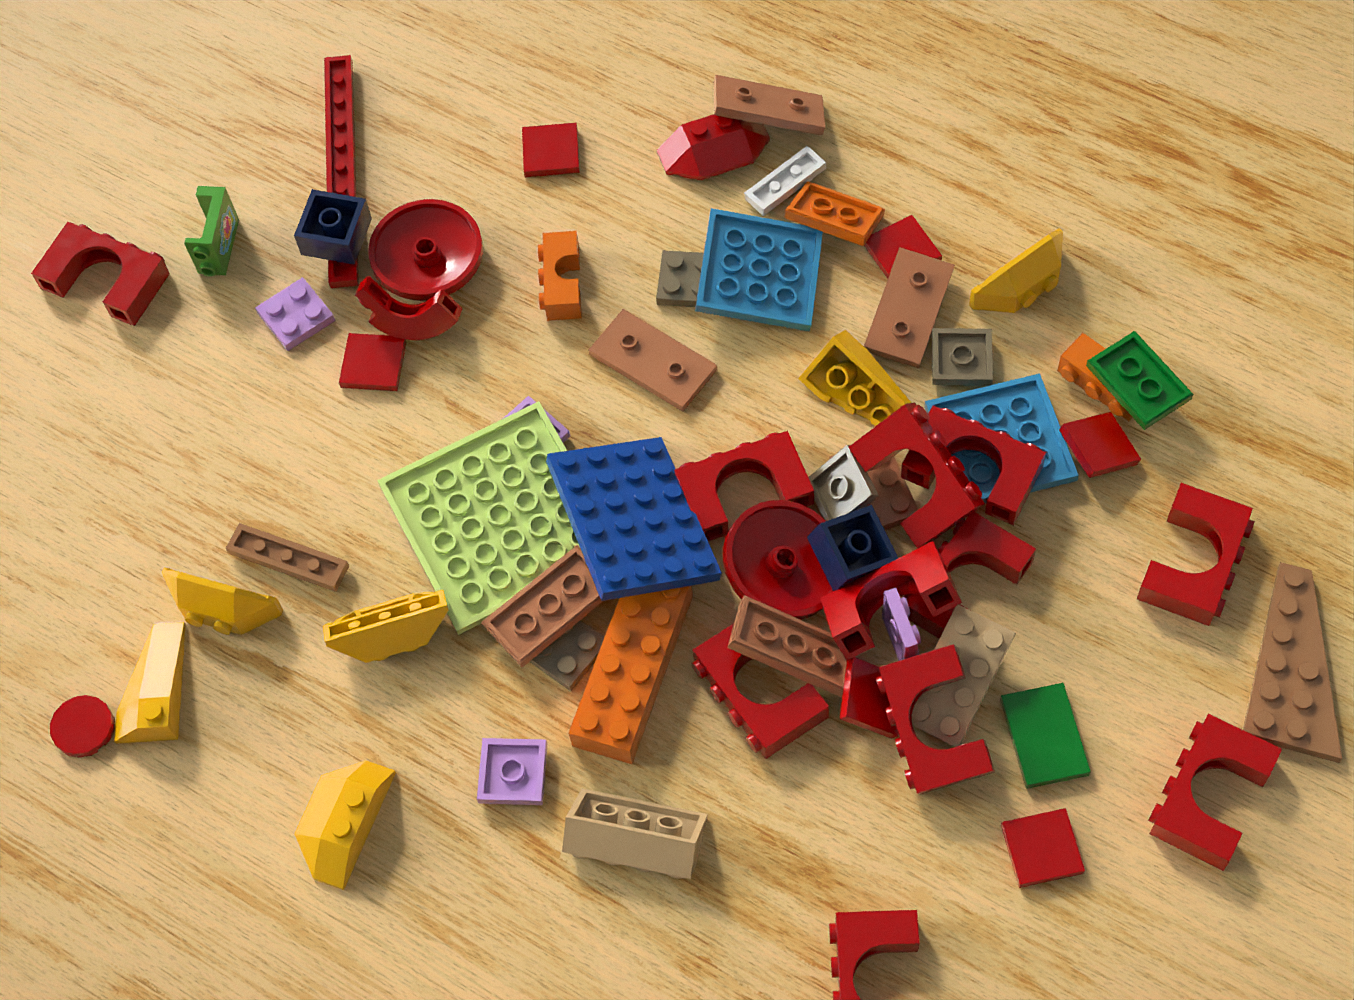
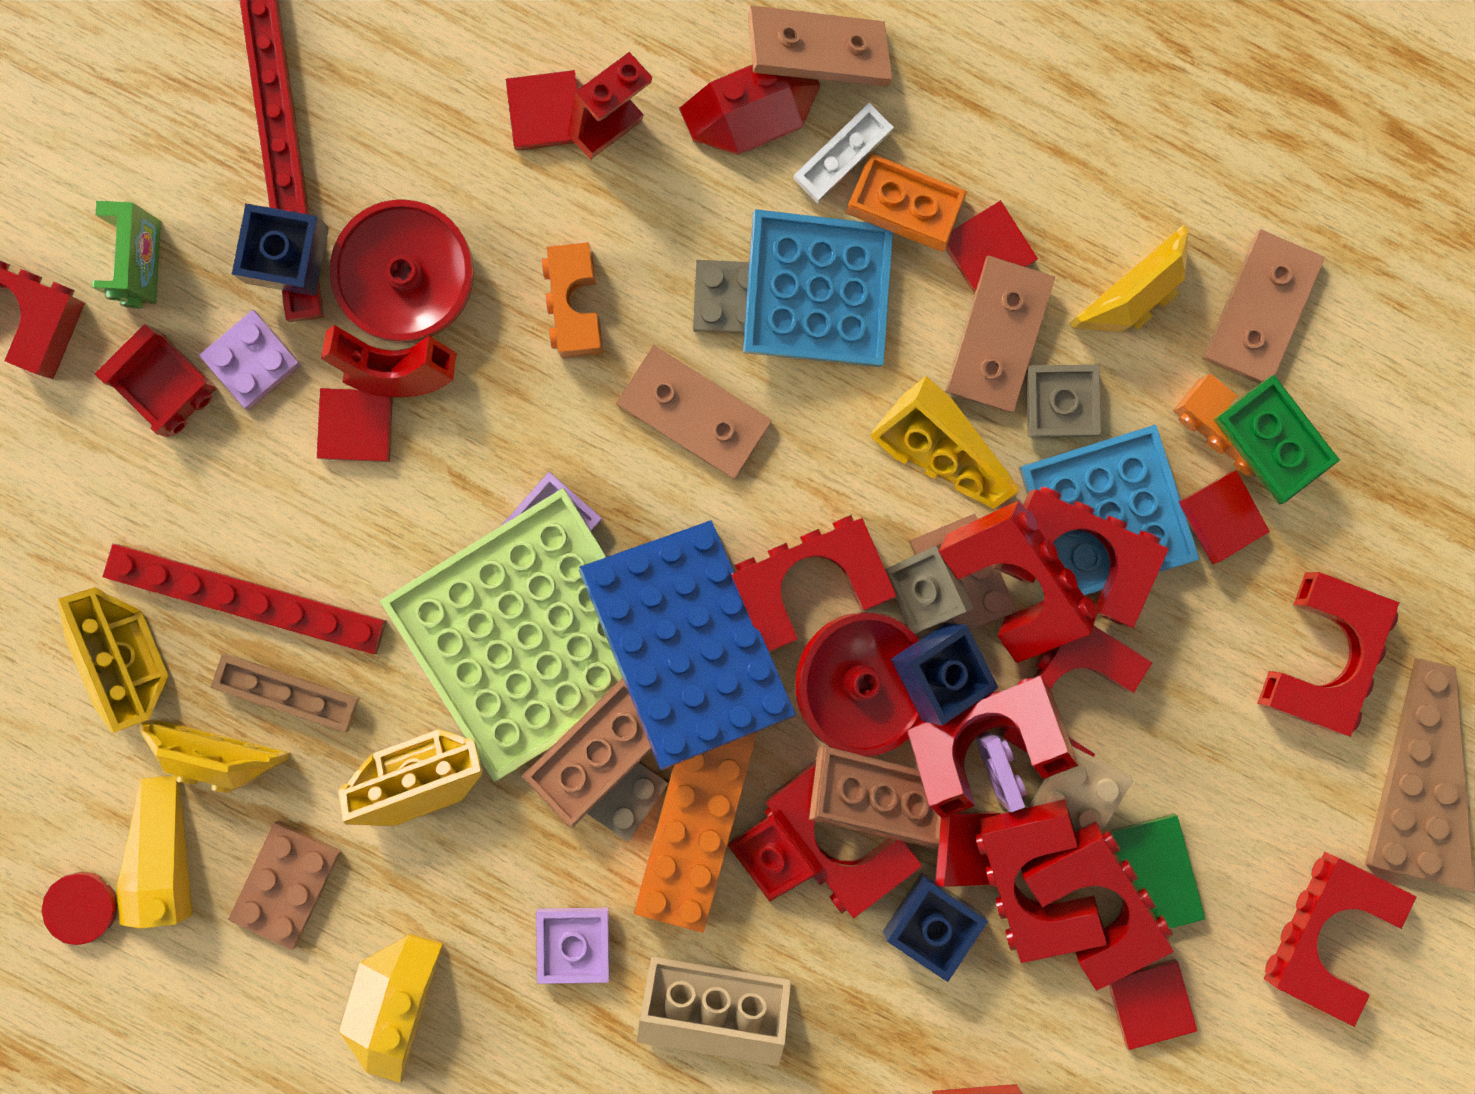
camera: 10 degrees left, 25 degrees up
(147, 517) = (113, 656): none -> yellow wedge
(218, 324) = (157, 381): none -> red panel
(263, 714) = (284, 885): none -> nougat plate
(265, 487) = (244, 598): none -> red plate
(596, 136) = (604, 107): none -> red panel
(698, 697) = (775, 856): none -> red tile
(839, 760) = (934, 927): none -> dark blue brick
(981, 695) = (1135, 935): none -> red arch
(1131, 293) = (1263, 307): none -> nougat plate

